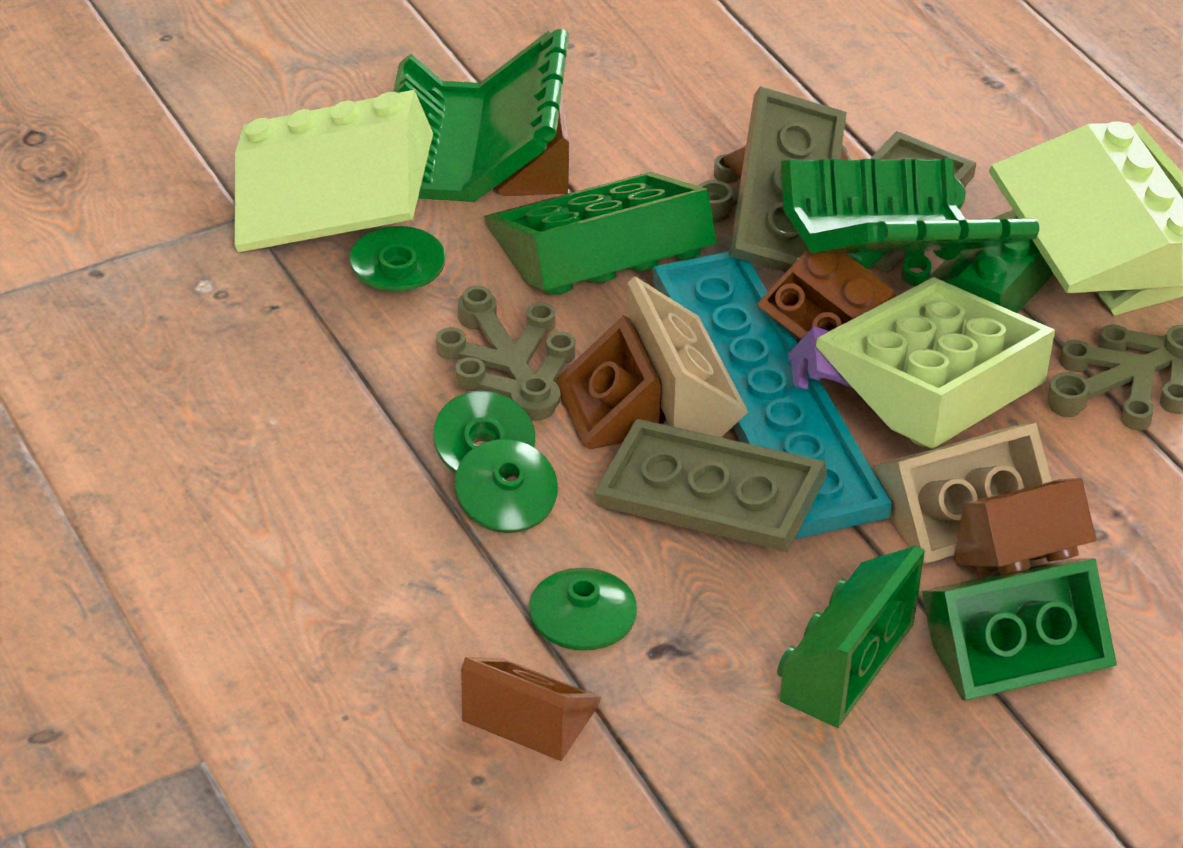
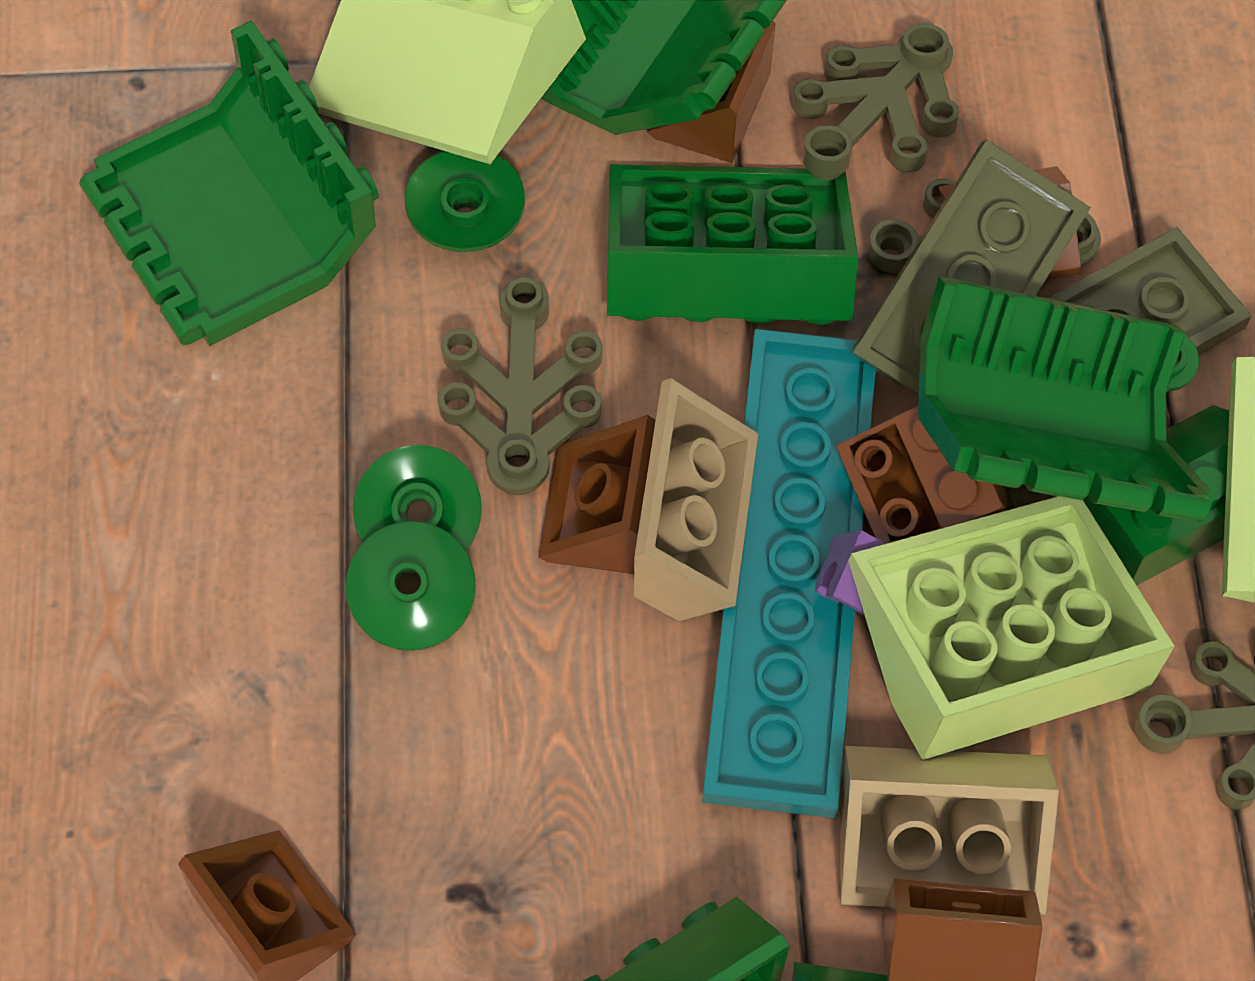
camera: 25 degrees right, 20 degrees up
(234, 301) = (236, 200): none -> green hinge
(583, 609) = (413, 823): green dish -> none
(658, 94) = (920, 54): none -> olive plant
(711, 484) = (635, 696): olive plate -> none

